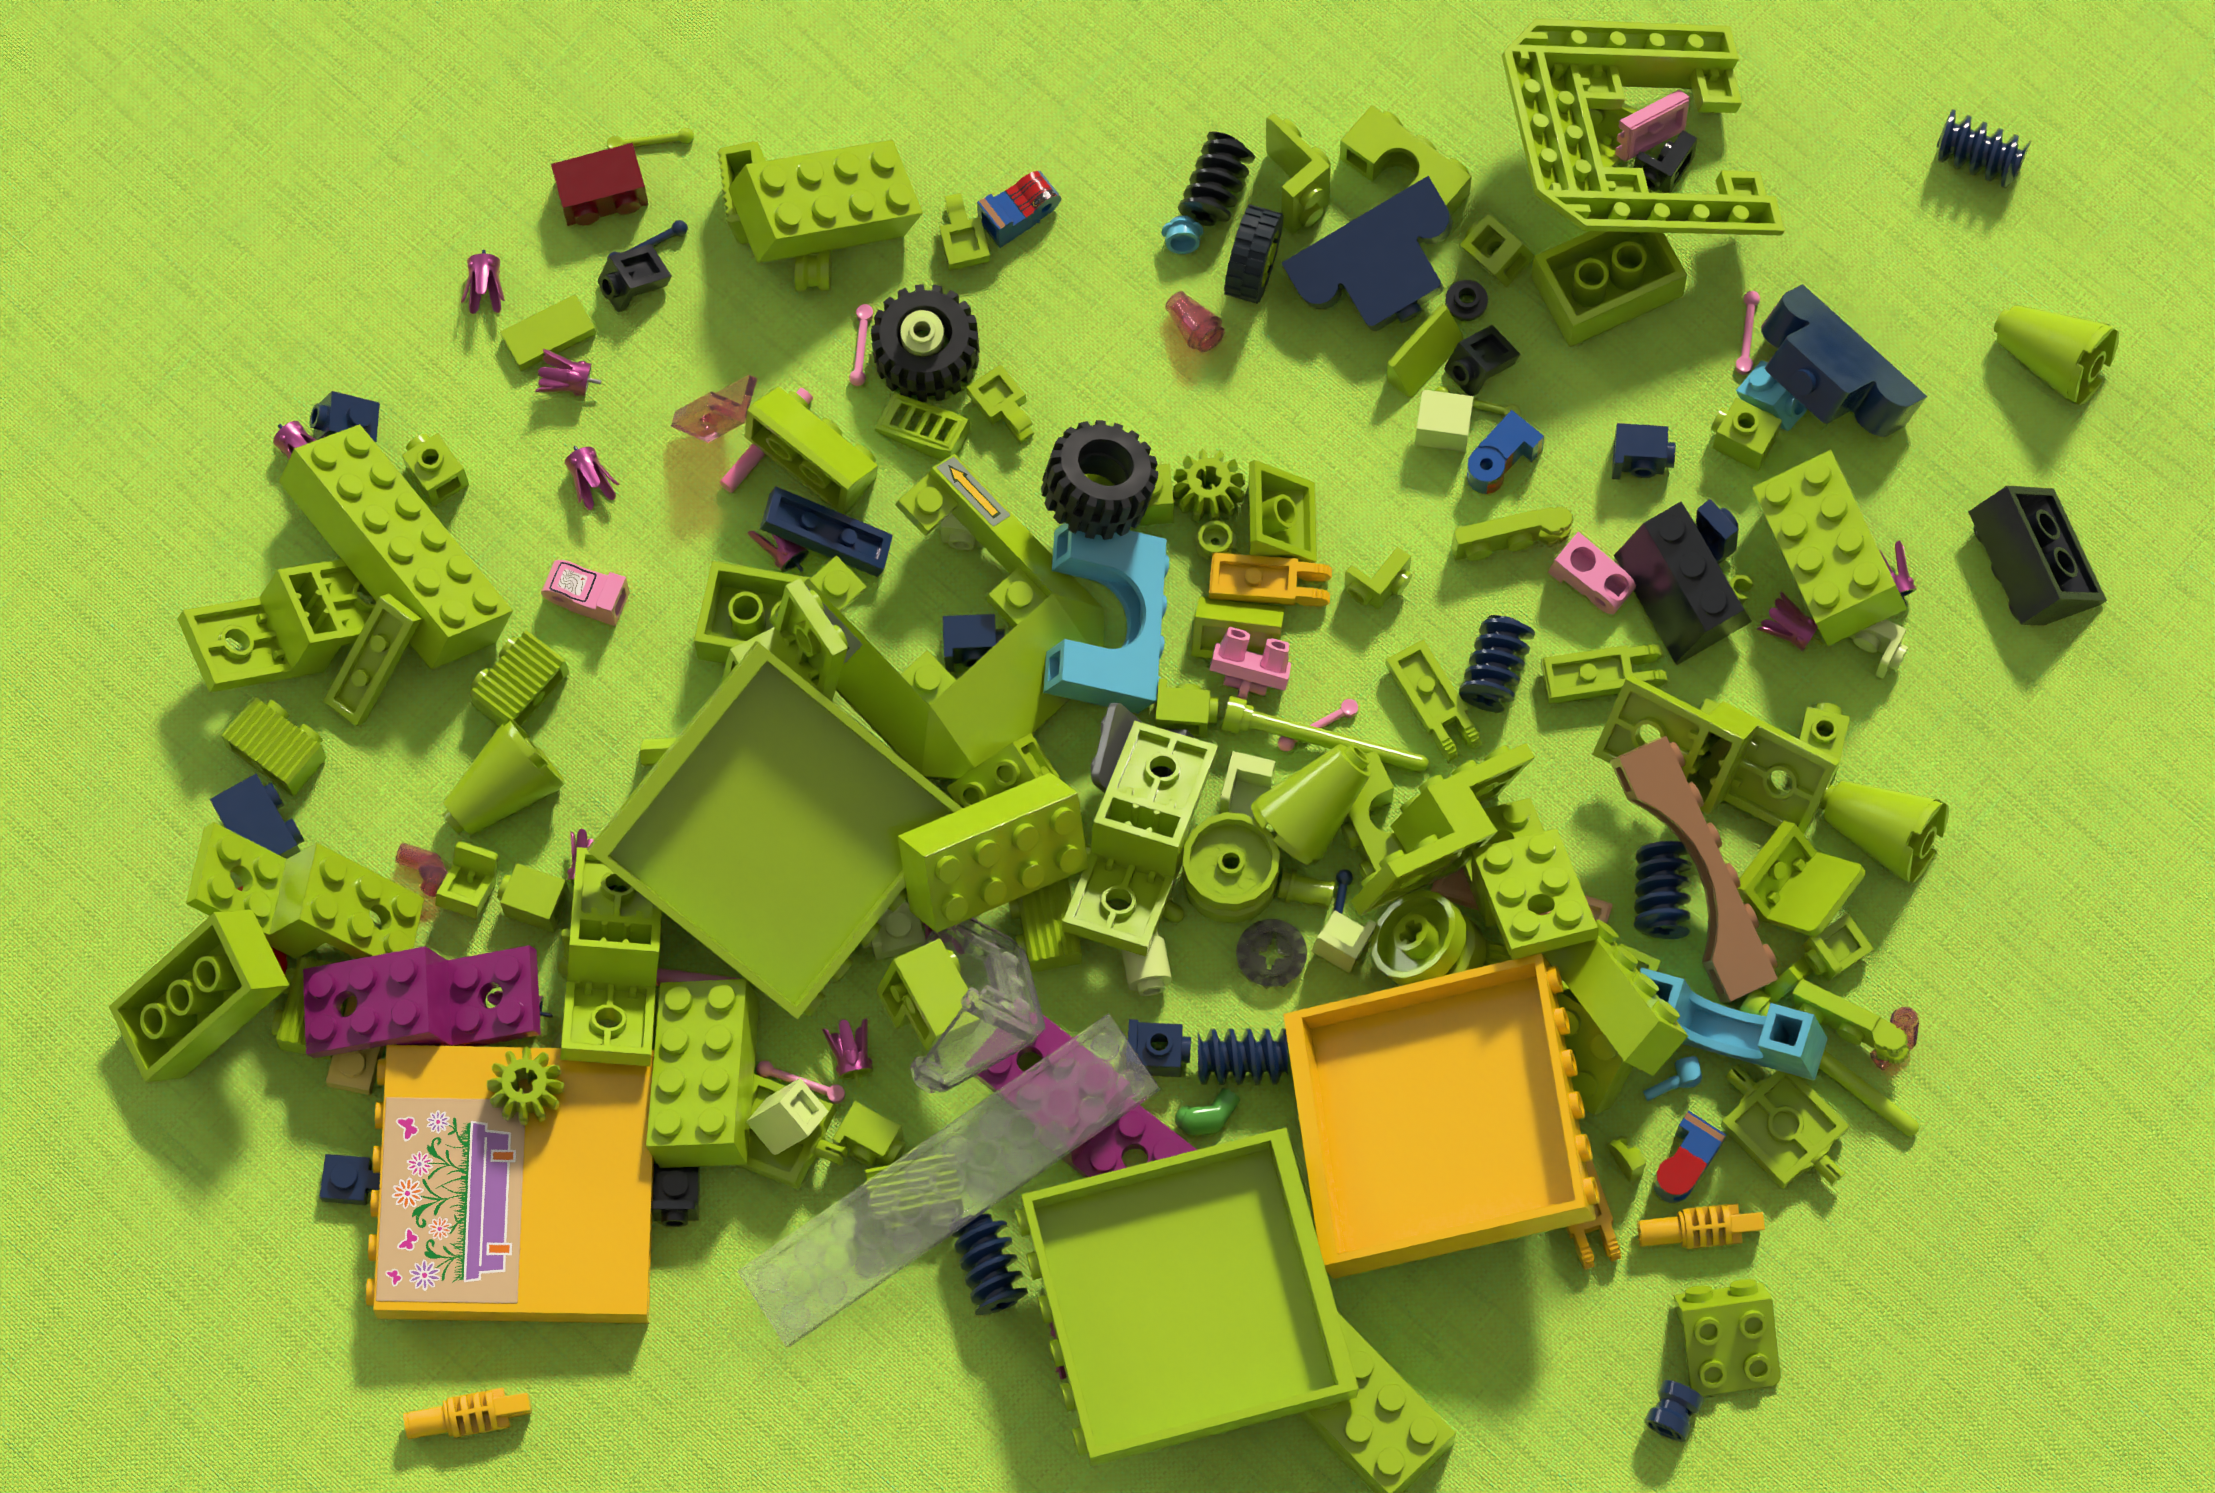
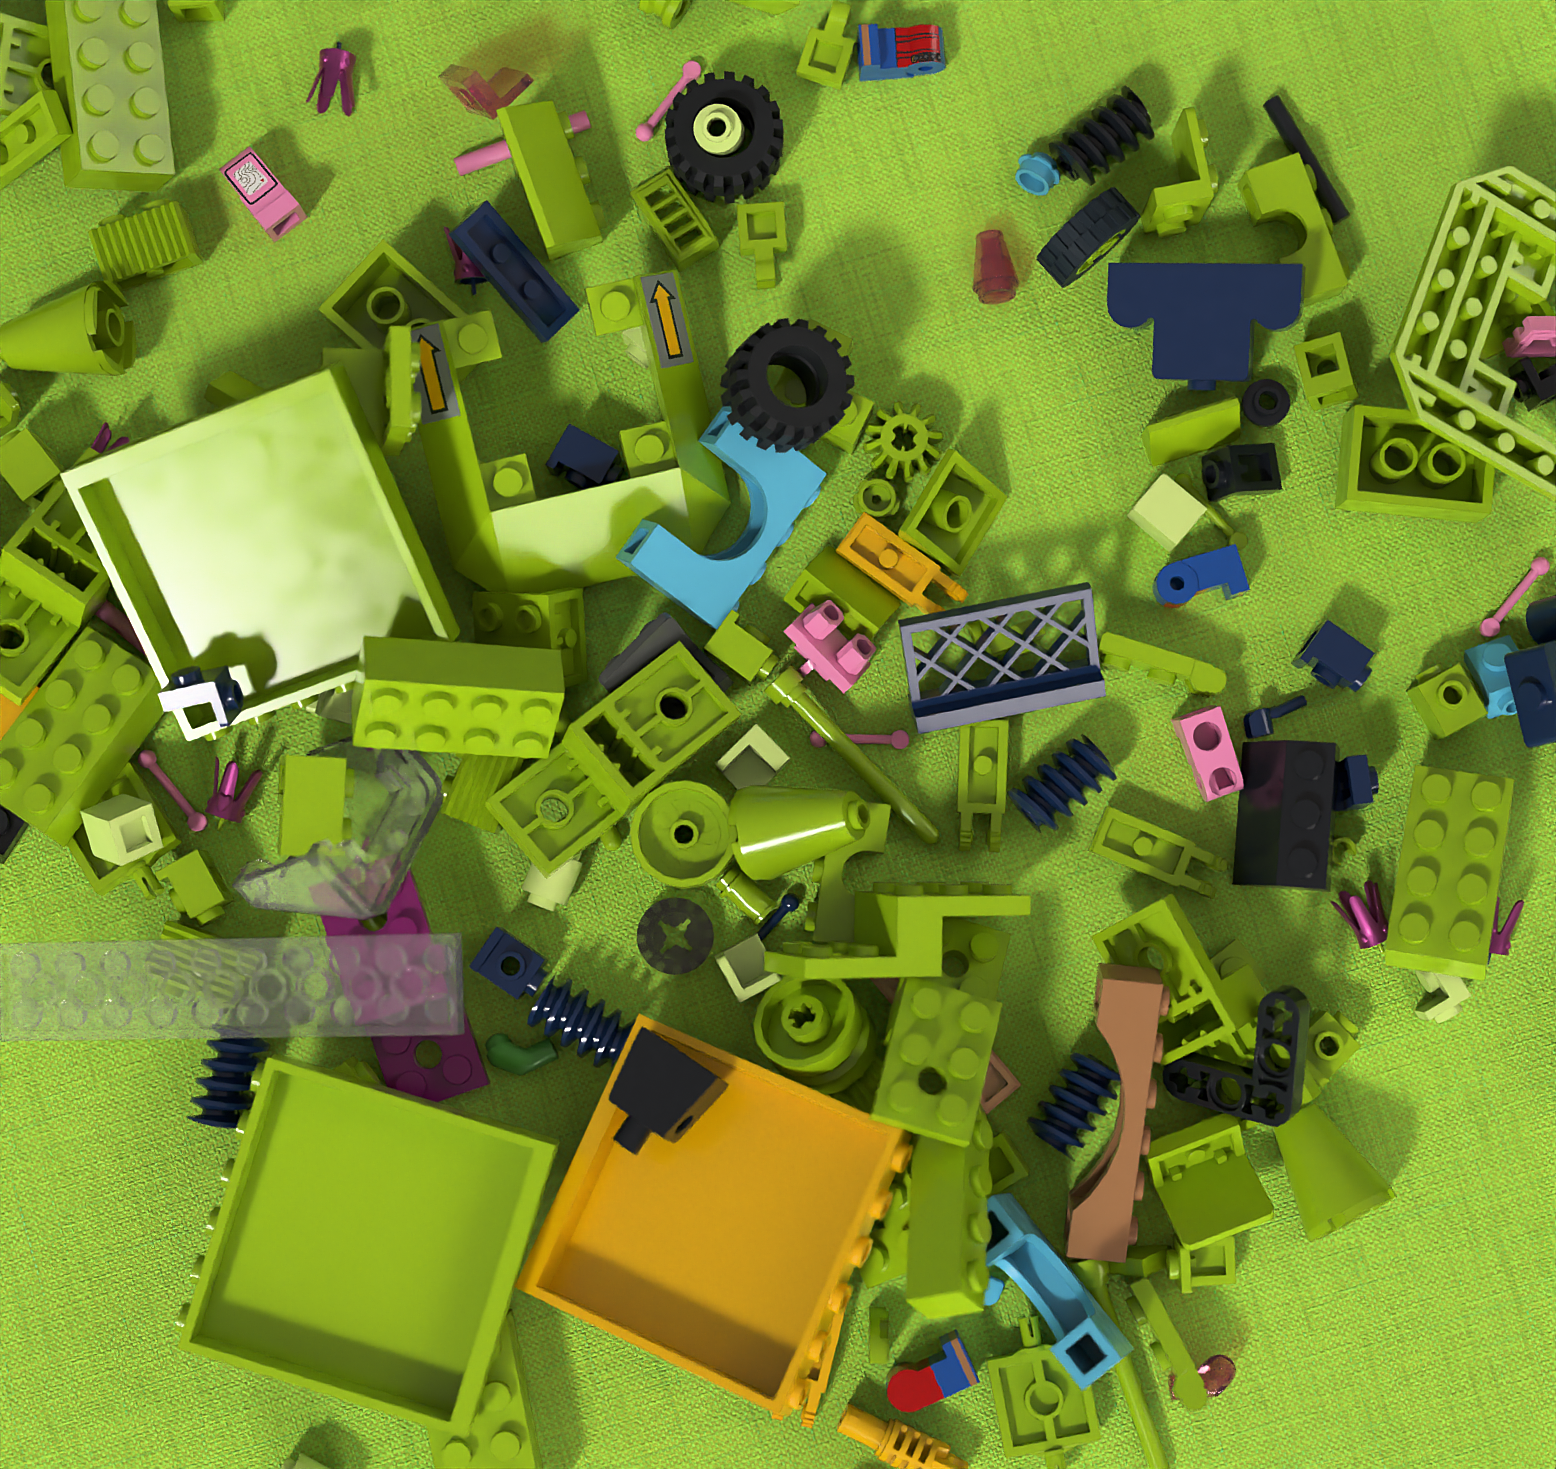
camera: 30 degrees right, 15 degrees up
(783, 962) = (194, 687): none -> bracket
(1341, 1047) = (661, 1092): none -> black torso
(1363, 102) = (1296, 143): none -> black bar
(1416, 614) = (1015, 690): none -> fence
(1616, 530) = (1260, 721): none -> dark blue hand
(1791, 771) = (1264, 1077): none -> black beam

